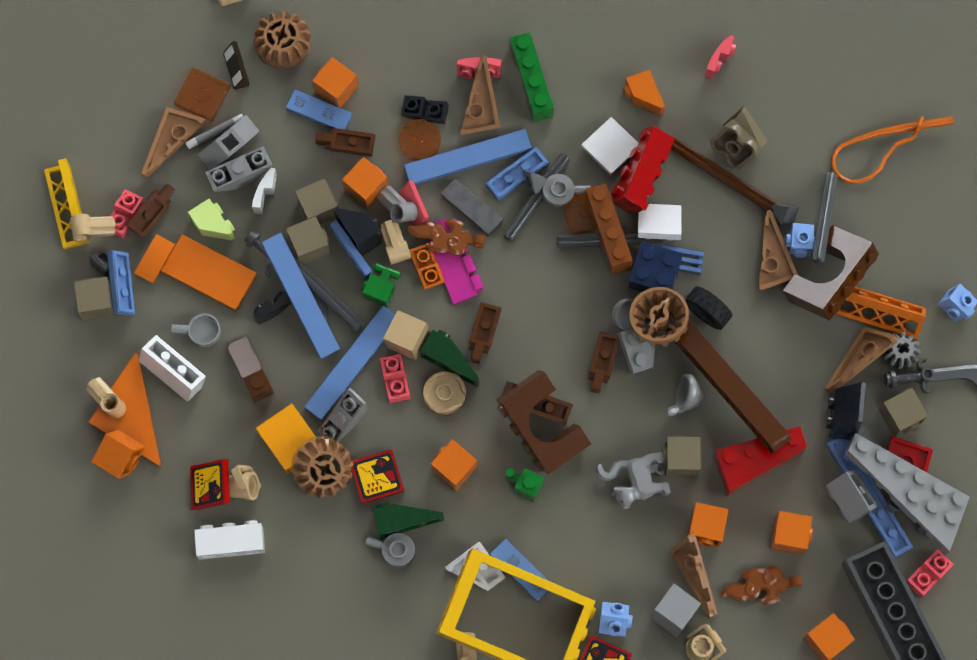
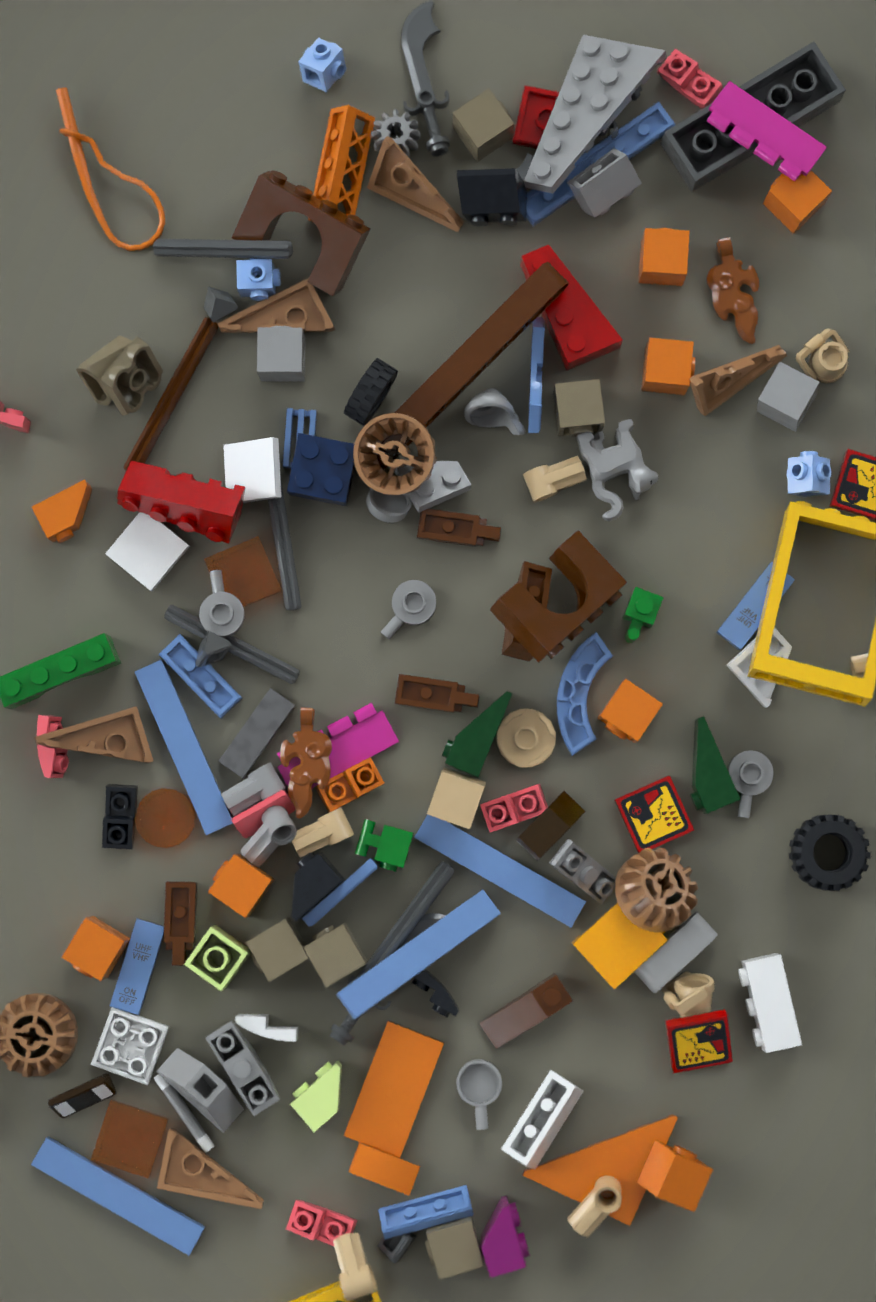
camera: 90 degrees left, 10 degrees up
(93, 330) = (500, 1241): none -> magenta slope
(150, 211) = (314, 1186): reddish brown hinge -> none
(165, 83) = (118, 1195): none -> medium blue tile
(265, 101) = (130, 1045): none -> white tile
(275, 477) = (677, 952): none -> light grey beam
(317, 161) = (218, 957): none -> yellowish green head
(318, 583) = (855, 852): none -> black tyre
(379, 401) = (551, 825): none -> dark brown slope
(432, 201) = (257, 787): none -> light grey piece
(475, 431) = (574, 690): none -> medium blue tile
(551, 324) = (412, 604): none -> light grey piece
(608, 229) = (273, 538): dark orange brick -> none
(631, 429) = (548, 480): none -> tan piece
(707, 429) = (535, 385): none -> medium blue tile
(743, 250) = (281, 353): none -> light grey head
(877, 620) = (771, 131): none -> dark pink windscreen

